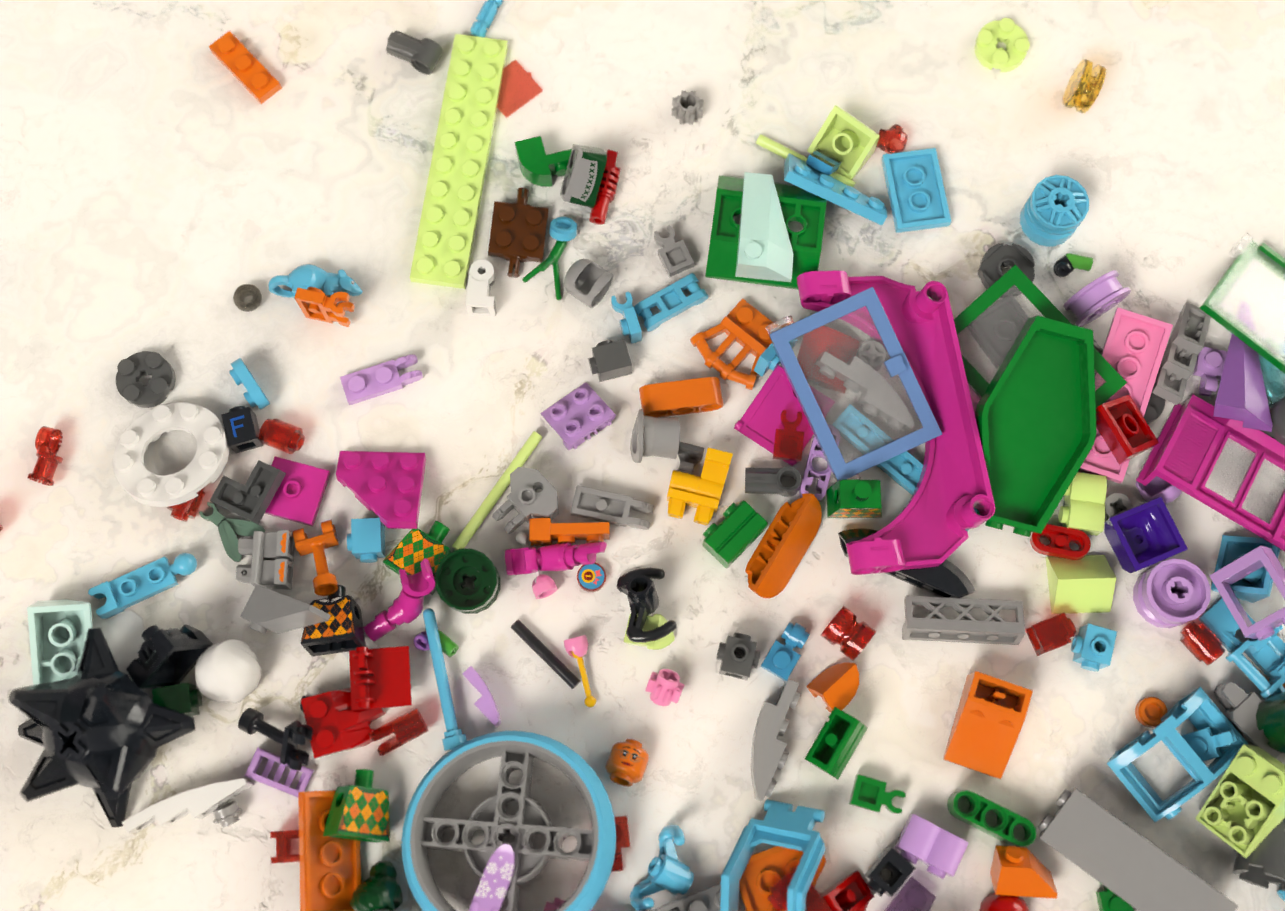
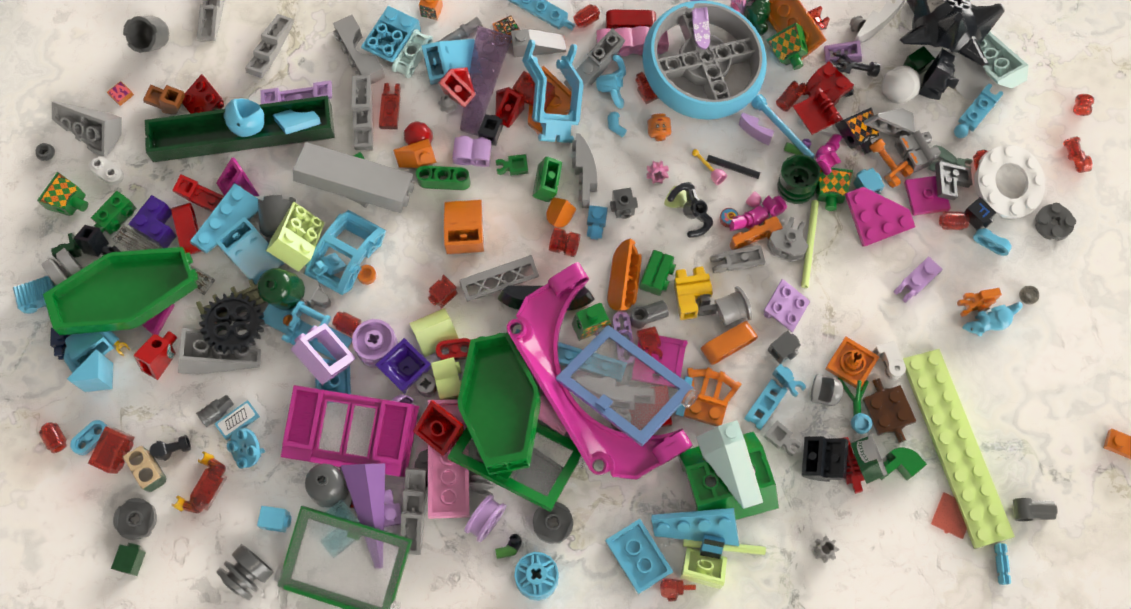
camera: 160 degrees right, 5 degrees down
(532, 306) = (852, 362): none -> orange plate
(634, 203) = (825, 458): none -> black brick
(692, 801) = (613, 124): none -> medium azure arm
(1093, 647) = (414, 294): medium azure brick -> none

